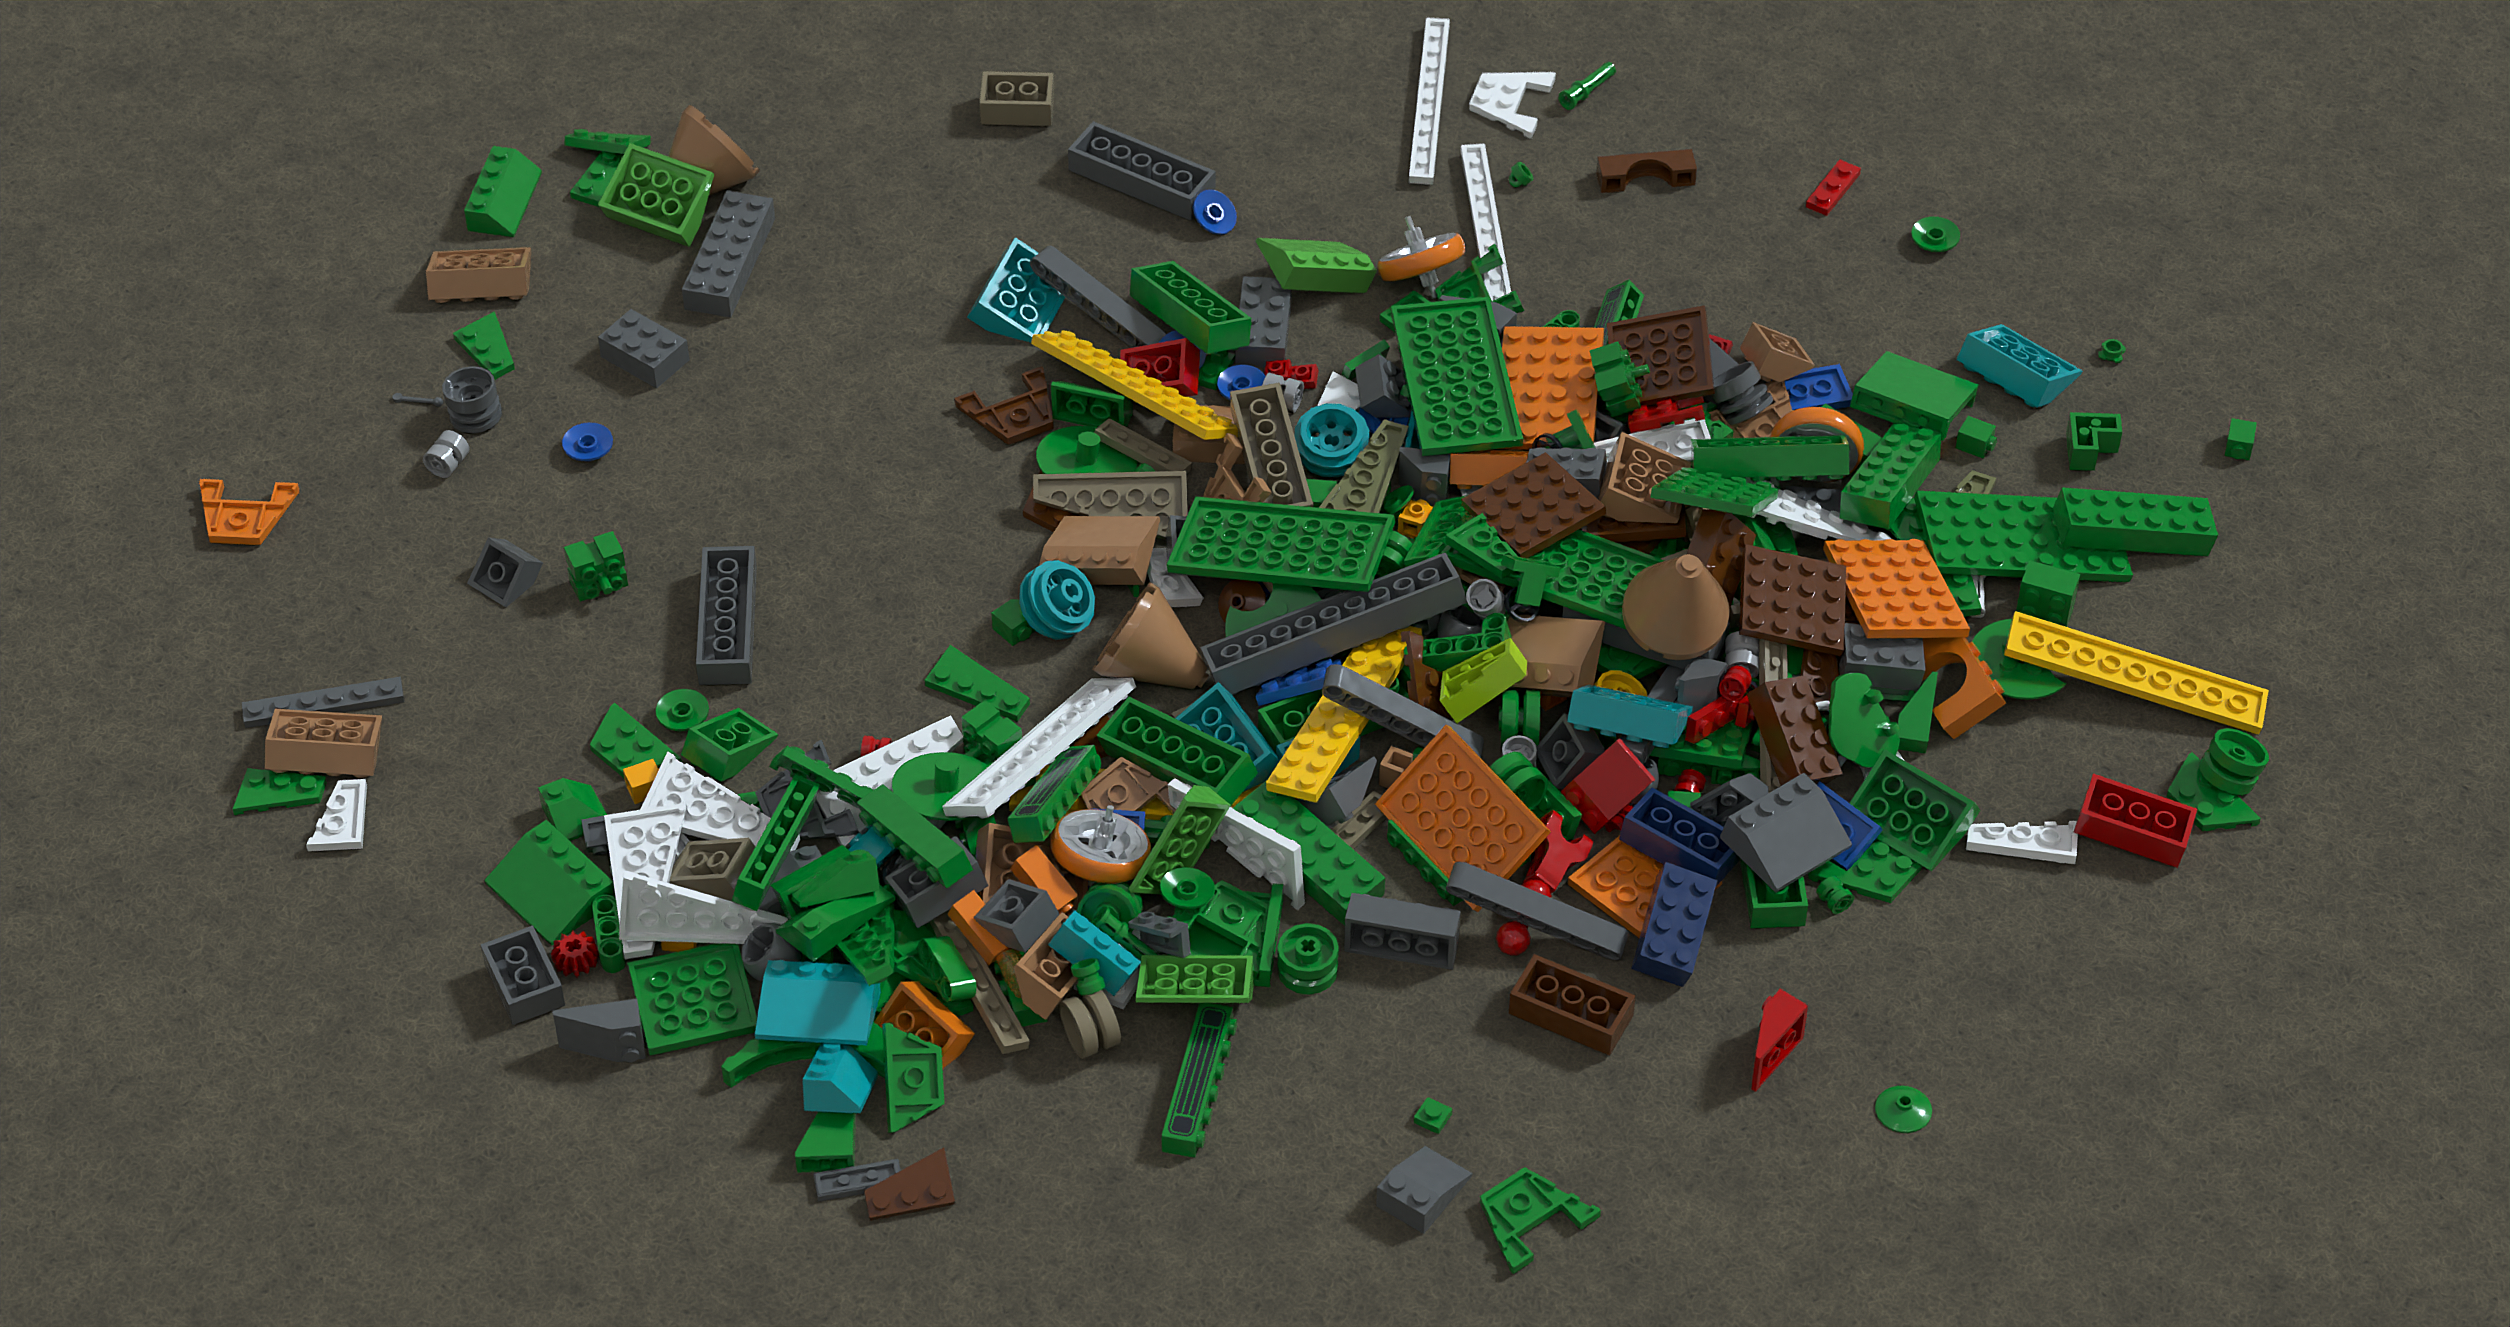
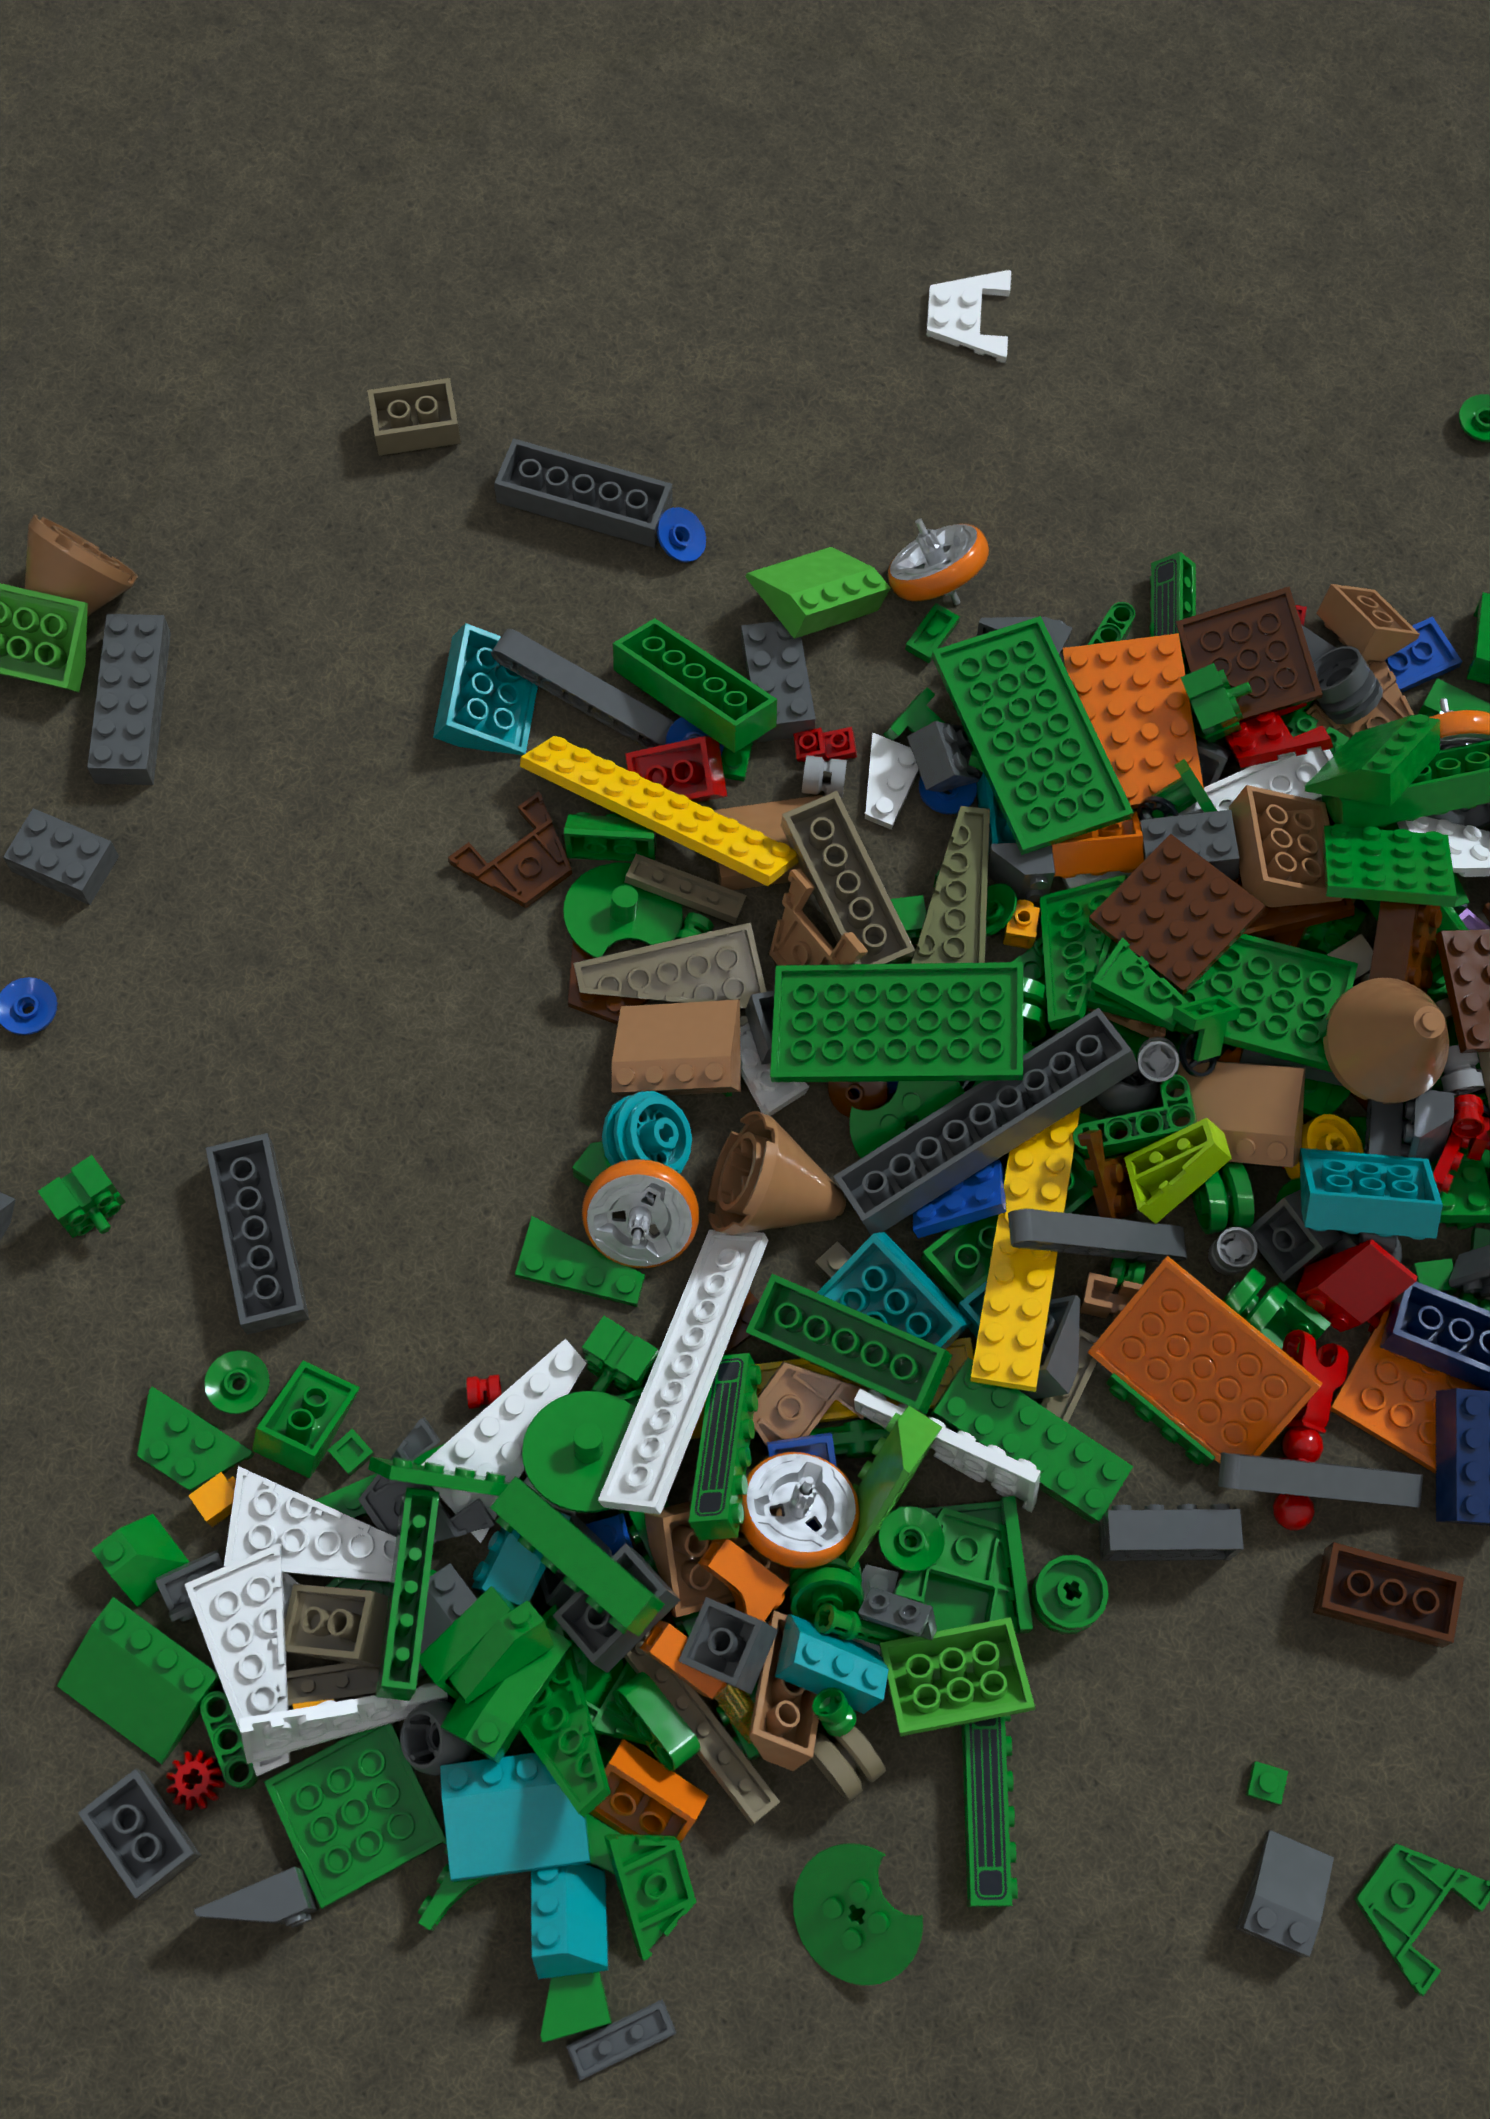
camera: 15 degrees left, 20 degrees up
(758, 771) = (351, 1452): none -> green plate
(913, 1189) = (692, 2046): reddish brown wing -> none
(1021, 667) = (631, 1188): none -> flat silver wheel
(1061, 1128) = (848, 1919): none -> green piece
(1239, 378) = (775, 760): blue dish -> none
(1328, 452) = (911, 809): teal wheel -> none
(1429, 101) = (881, 335): white plate -> none
(1471, 284) = (996, 594): green wing -> none
(1484, 215) = (993, 502): white plate -> none
(1522, 175) = (1012, 418): green tile -> none
(1581, 89) = (1045, 288): green pin -> none
(1674, 167) = (1178, 377): reddish brown arch -> none
(1690, 781) = (1431, 1249): red wheel -> none
(1741, 429) = (1380, 761): none -> green slope
(1833, 187) = (1355, 372): red plate -> none

